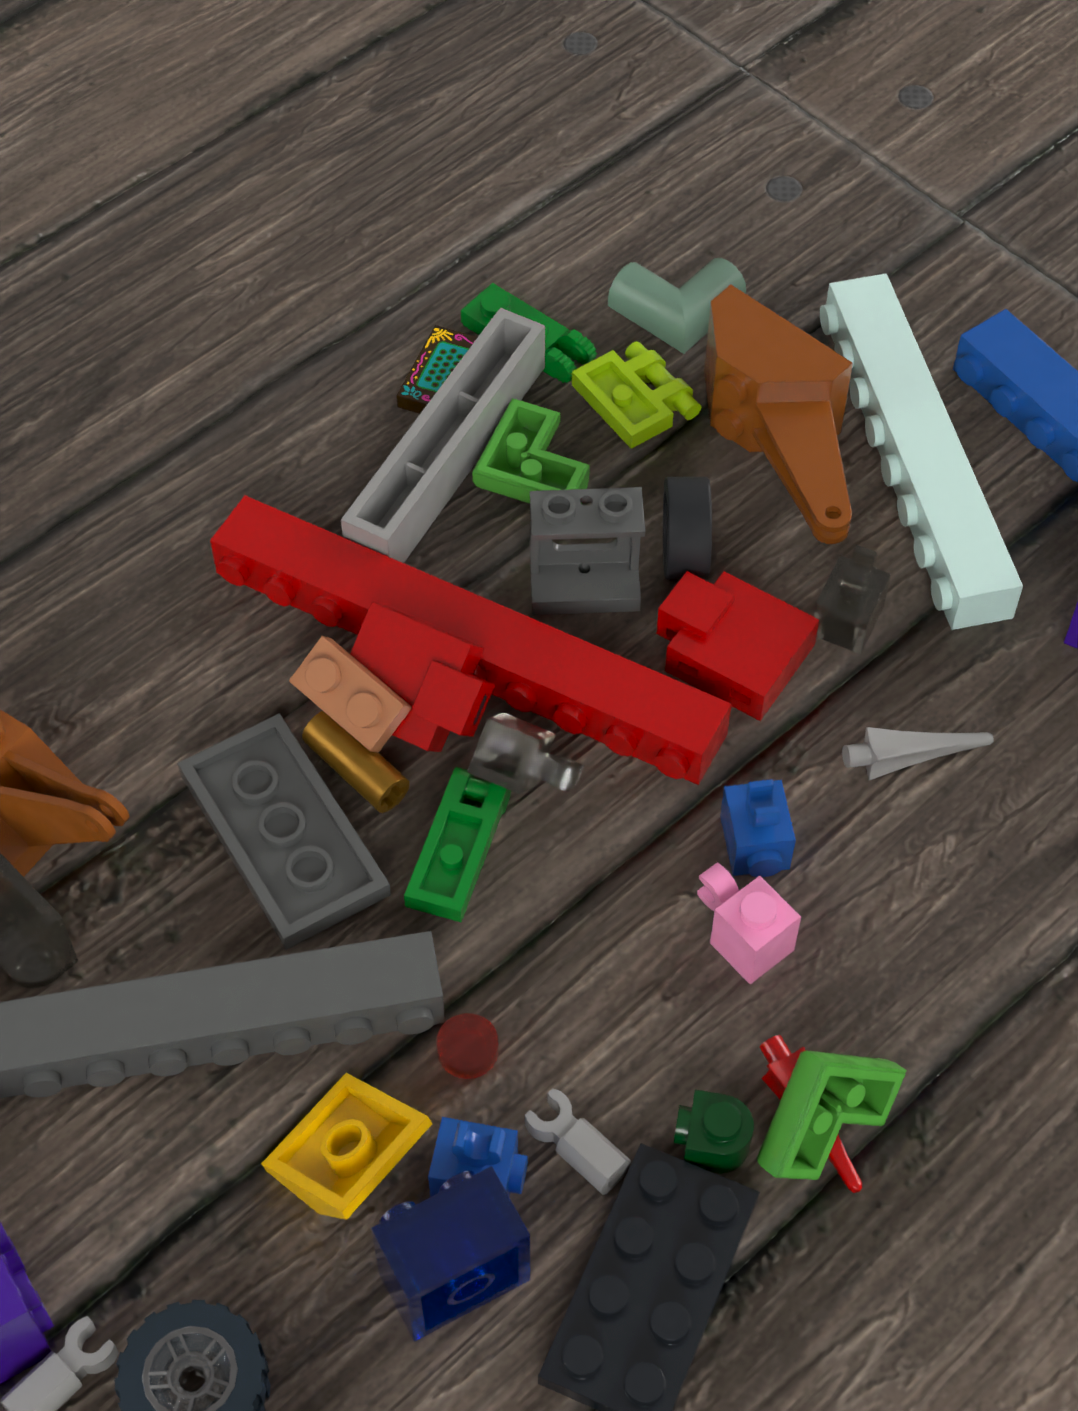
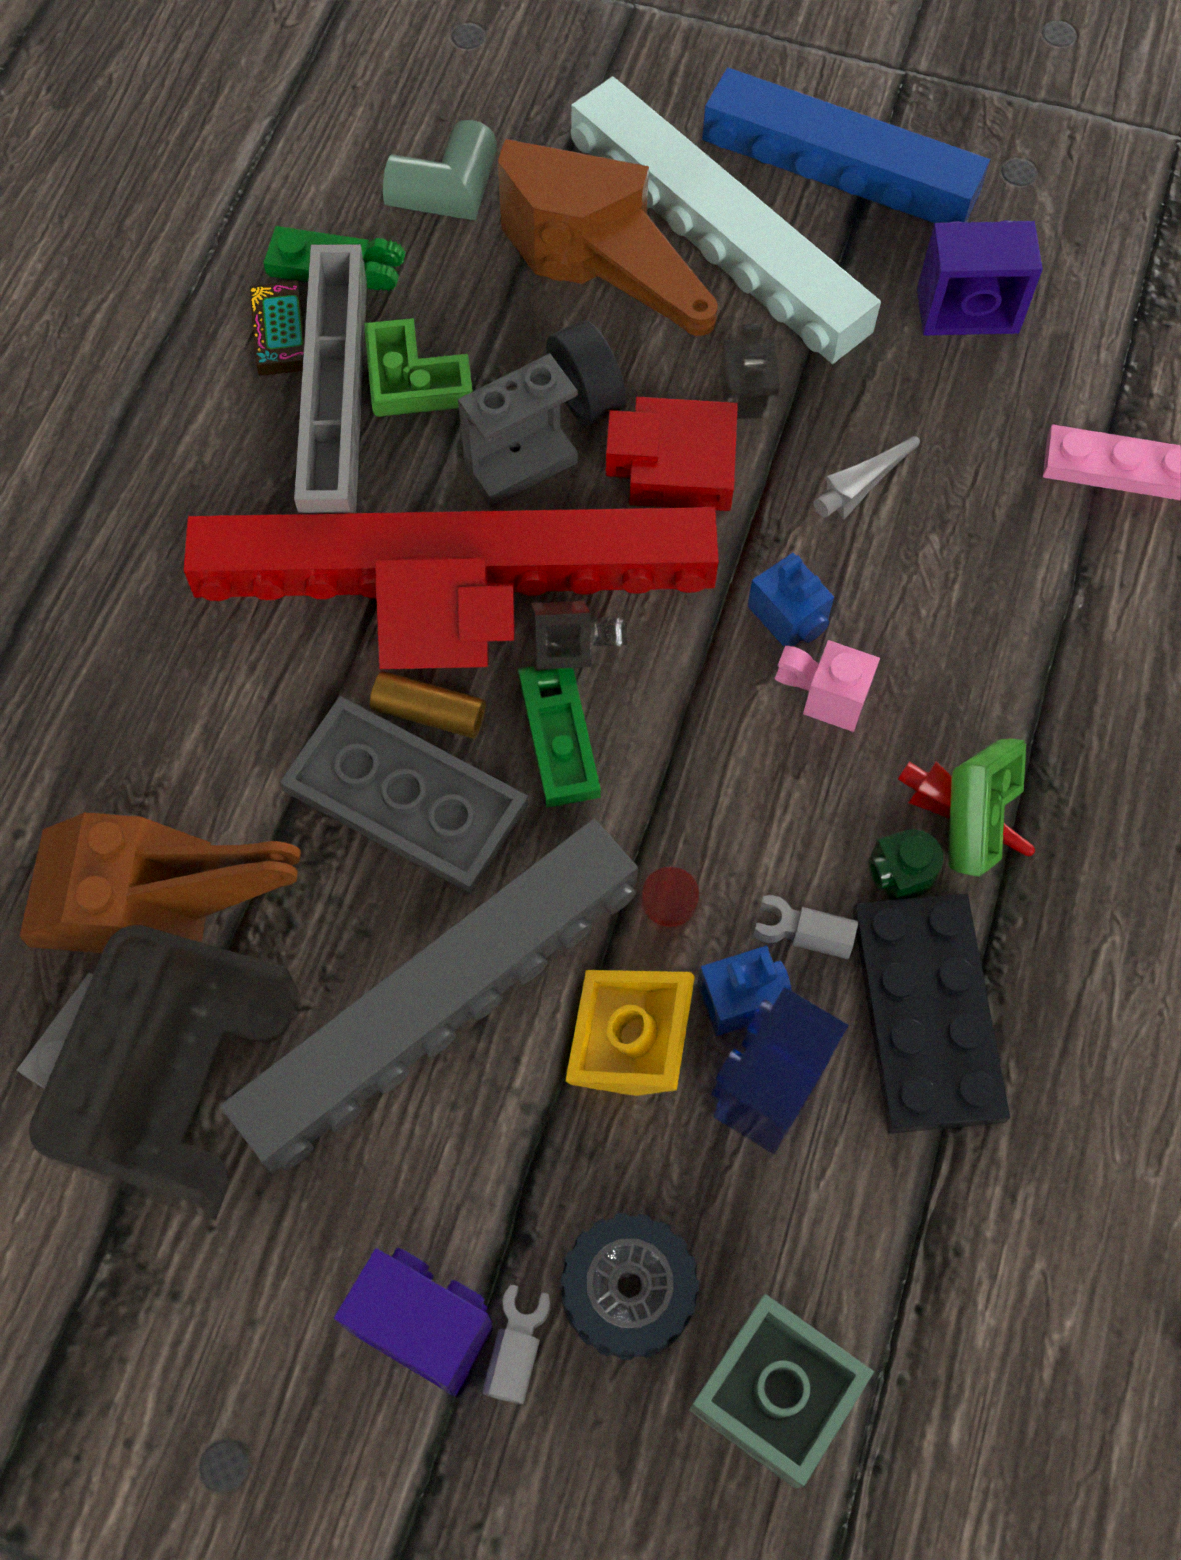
camera: 30 degrees left, 10 degrees up
(350, 694) = (397, 649): nougat plate -> none
(625, 401) = (456, 283): lime plate -> none

